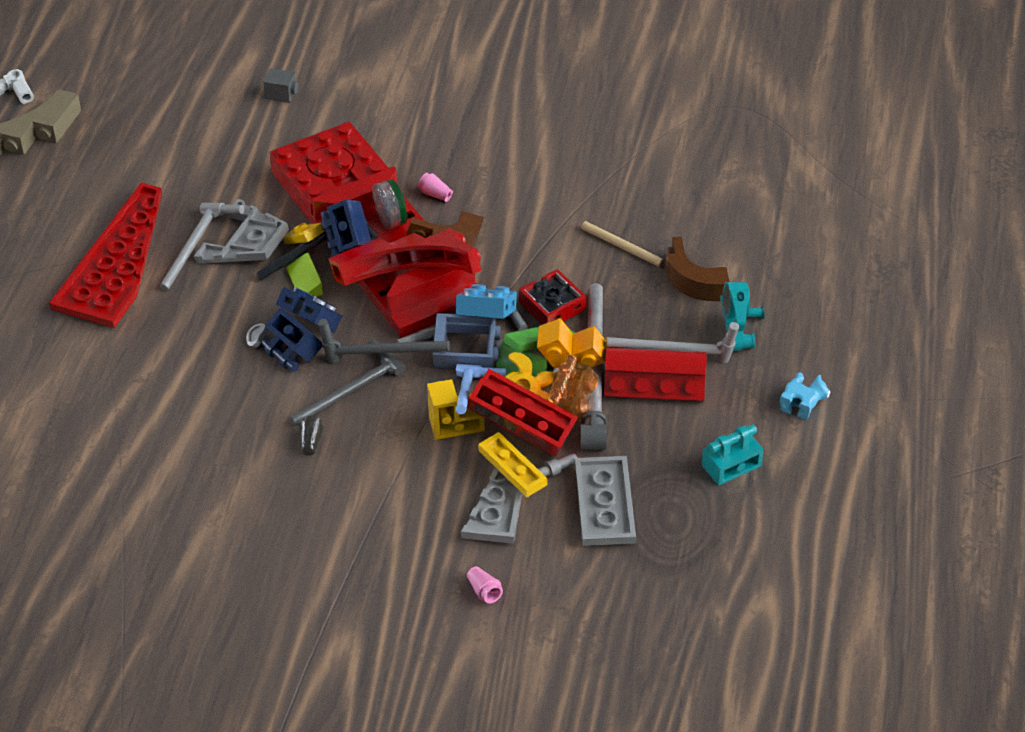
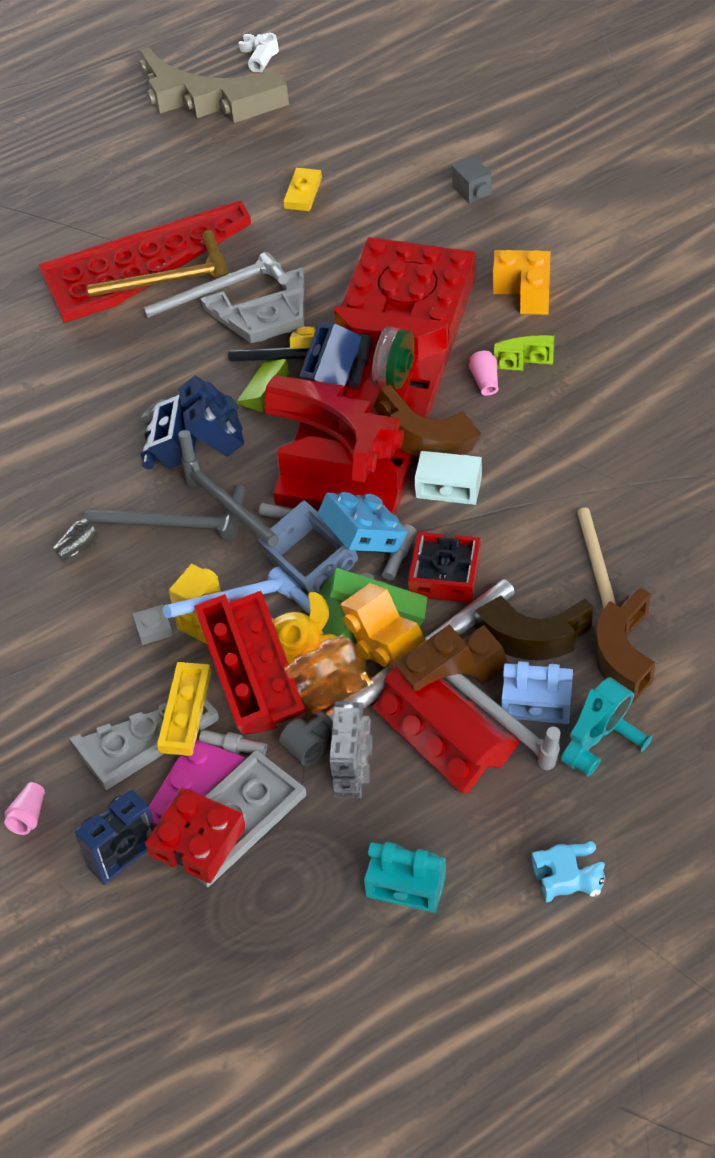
camera: 50 degrees right, 5 degrees up
(169, 154) = (302, 189): none -> yellow plate
(176, 232) = (214, 267): none -> pearl gold bar
(392, 118) = (524, 275): none -> light orange brick
(420, 446) = (152, 625): none -> light grey plate
(445, 159) = (528, 349): none -> lime slope
(496, 253) = (448, 477): none -> light aqua brick
(560, 506) = (196, 773): none -> dark pink wing
(563, 549) = (117, 836): none -> piece
(606, 516) = (195, 834): none -> red piece
(628, 332) = (451, 655): none -> reddish brown arch
(630, 417) = (350, 749): none -> clear piece
(636, 305) = (534, 637): none -> dark brown arch
(684, 322) = (537, 692): none -> light blue brick

